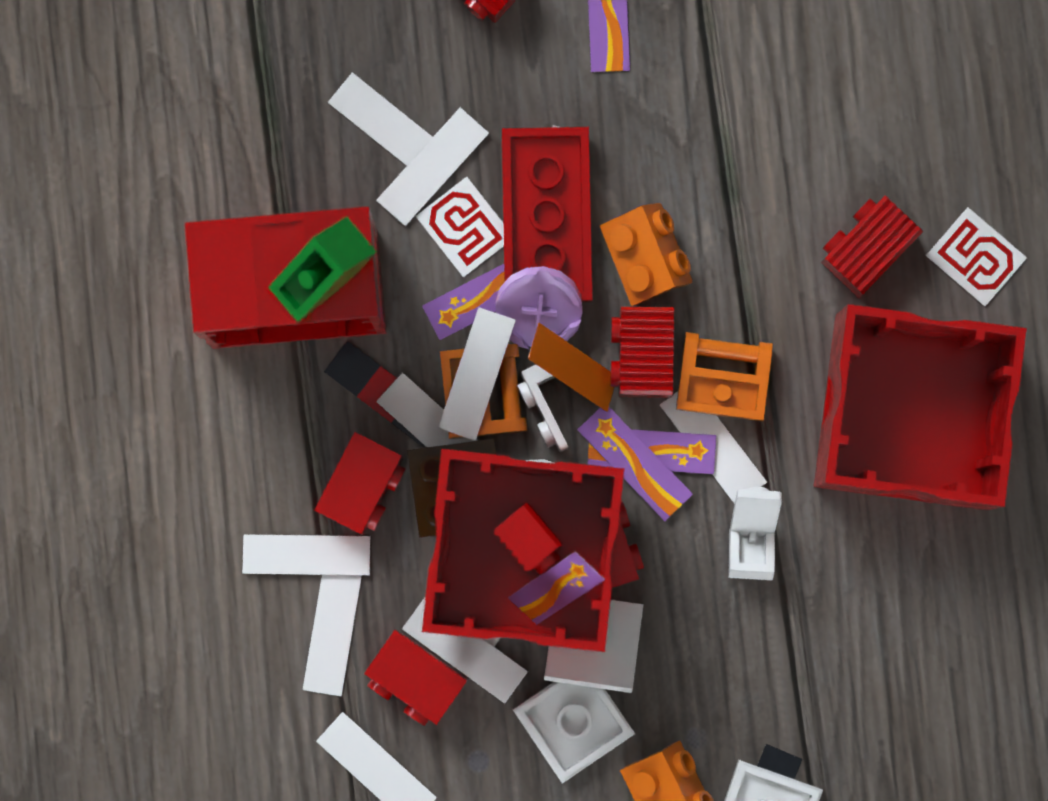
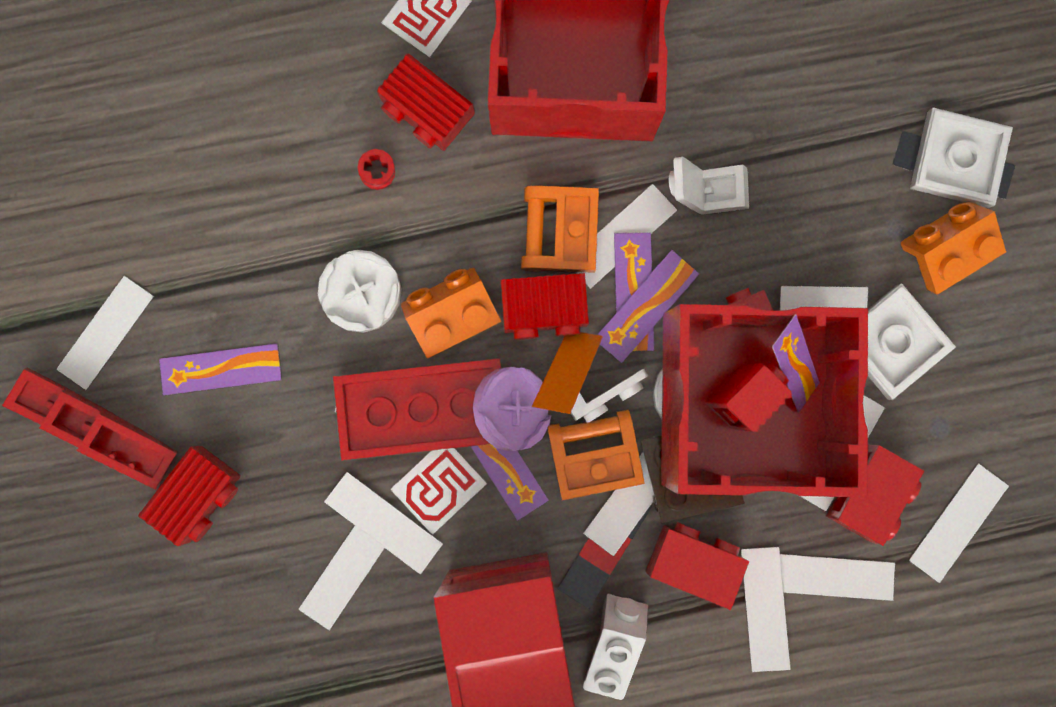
camera: 90 degrees left, 0 degrees up
(284, 393) = (617, 647): none -> white bracket
(322, 268) = (505, 644): green slope -> none
(476, 374) = (581, 462): white sticker -> none
(677, 161) = (359, 291): none -> white tile
(797, 179) = (366, 176): none -> red bush

